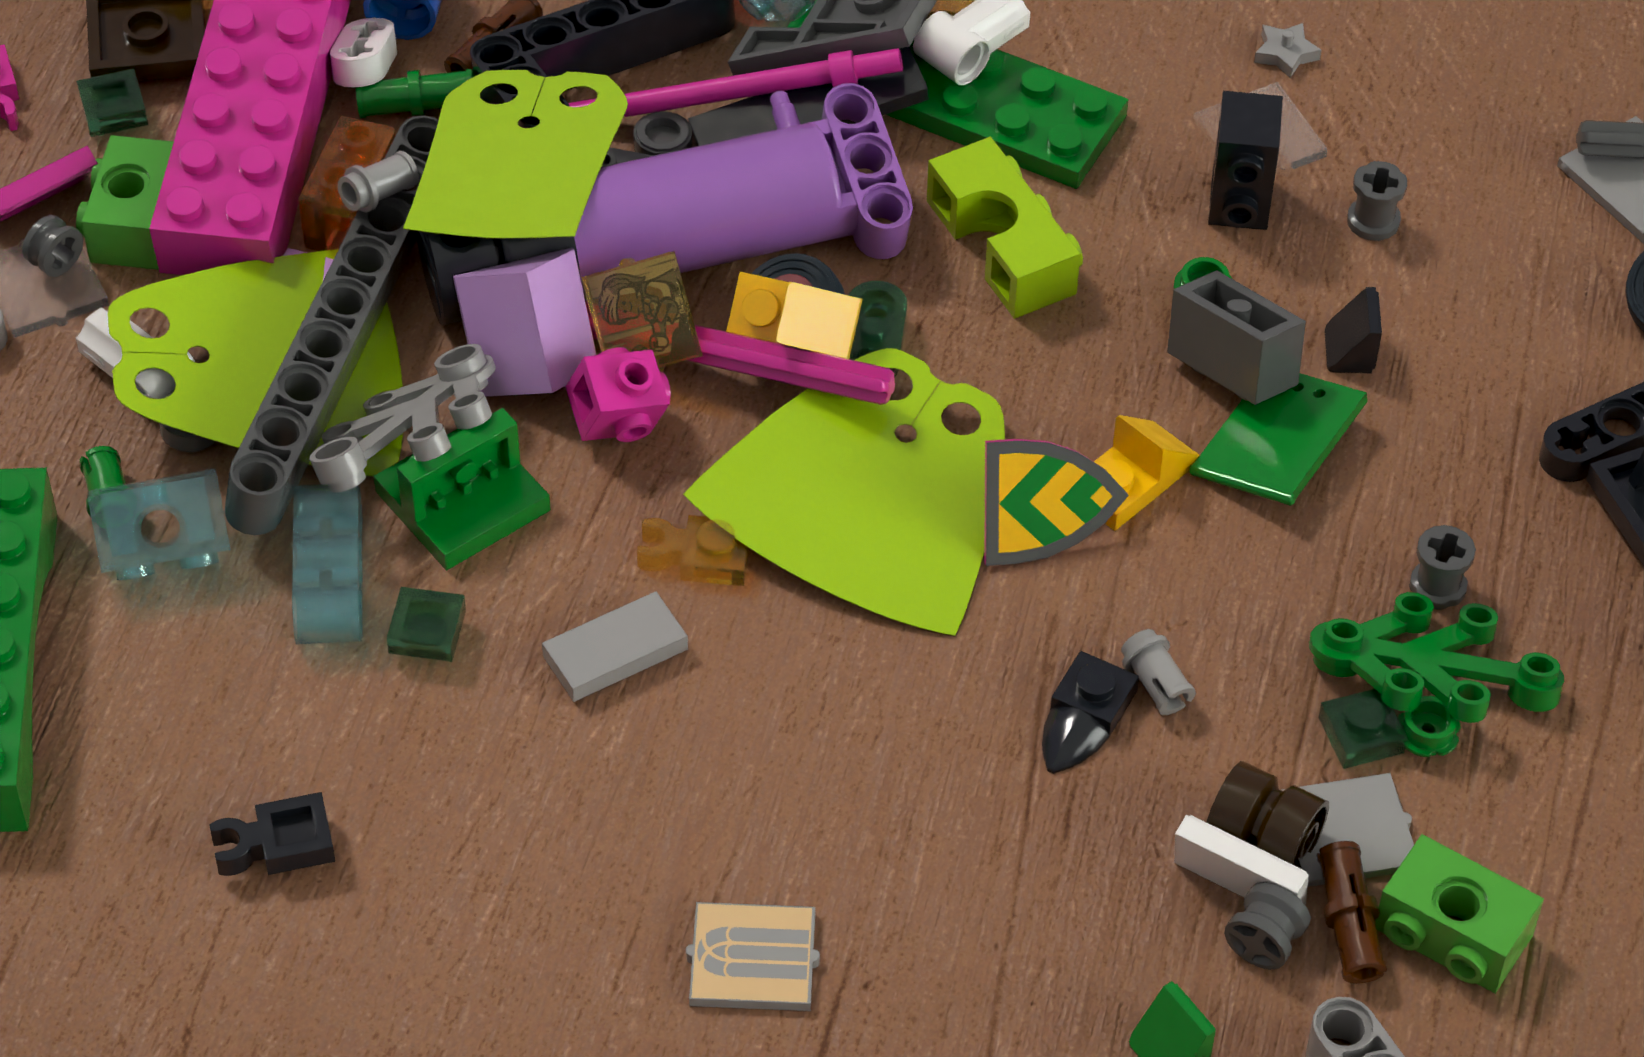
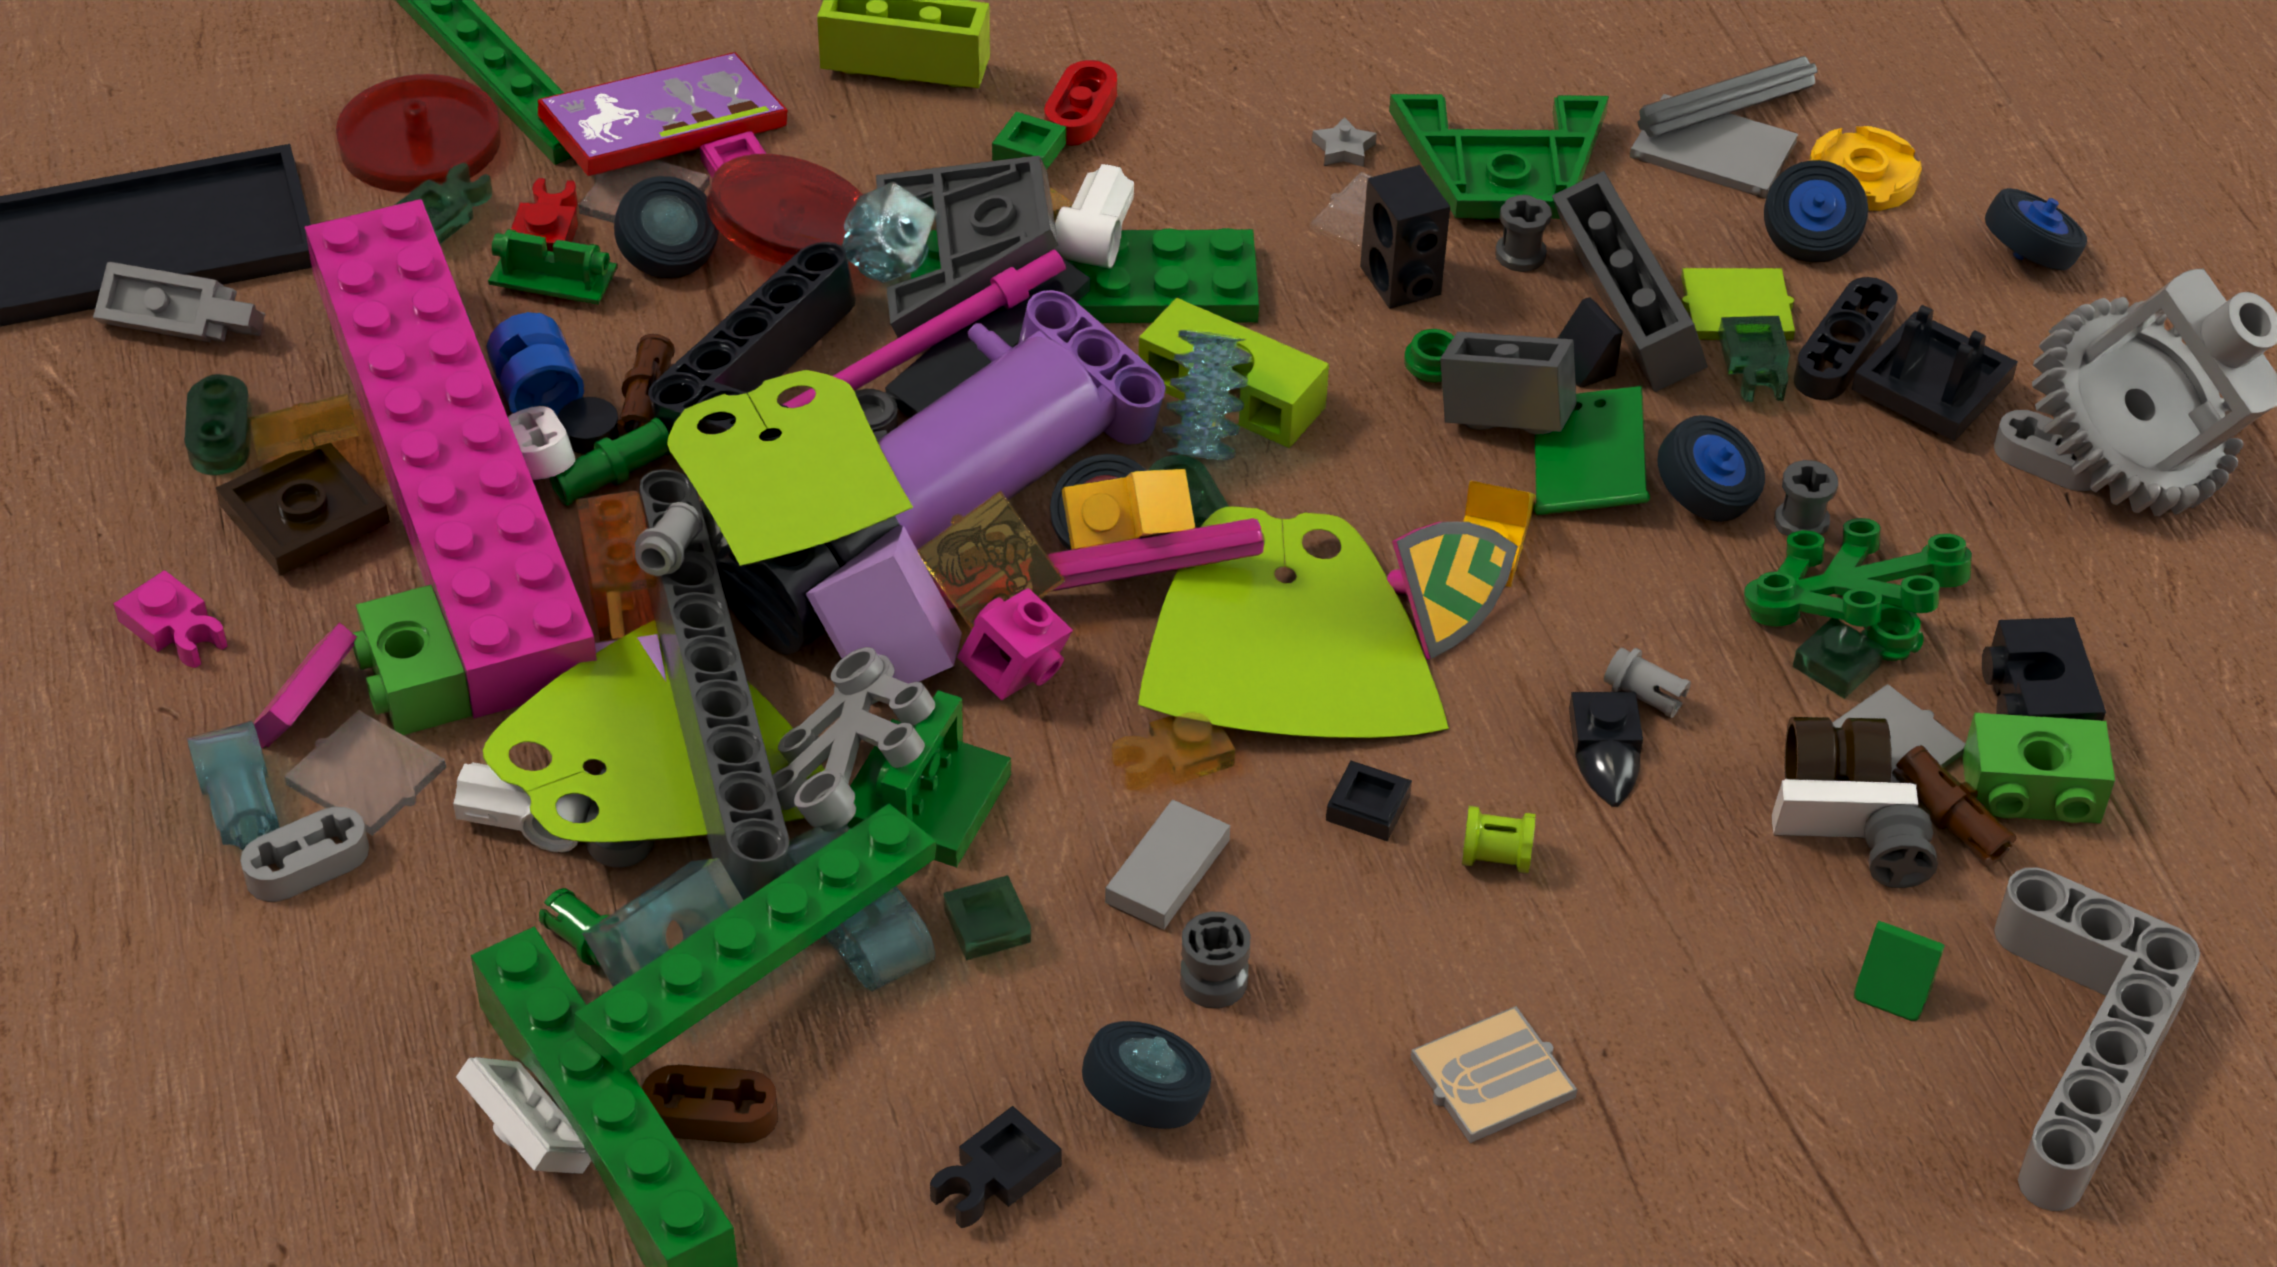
camera: 30 degrees left, 5 degrees down
(52, 245) = (365, 730): dark grey bush -> none
(107, 669) = (711, 1102): none -> reddish brown beam
(112, 103) = (317, 581): clear green plate -> none
(206, 553) = (753, 938): none -> green plate
(424, 50) = (588, 422): none -> black tile
(448, 817) = (1146, 1074): none -> black wheel
(581, 746) = (1215, 959): none -> dark grey wheel
(830, 668) = (1369, 800): none -> black tile
(907, 753) = (1498, 839): none -> lime bush
(947, 240) = (1207, 395): none -> clear light blue piece
(1373, 498) = (1711, 468): none -> black wheel
(1422, 132) = (1487, 166): none -> green wing
(1432, 288) = (1630, 281): none -> dark grey brick
(1513, 406) = (1756, 350): none -> clear green plate
(1532, 828) = (2041, 670): none -> black brick
(1544, 351) = (1735, 293): none -> lime piece

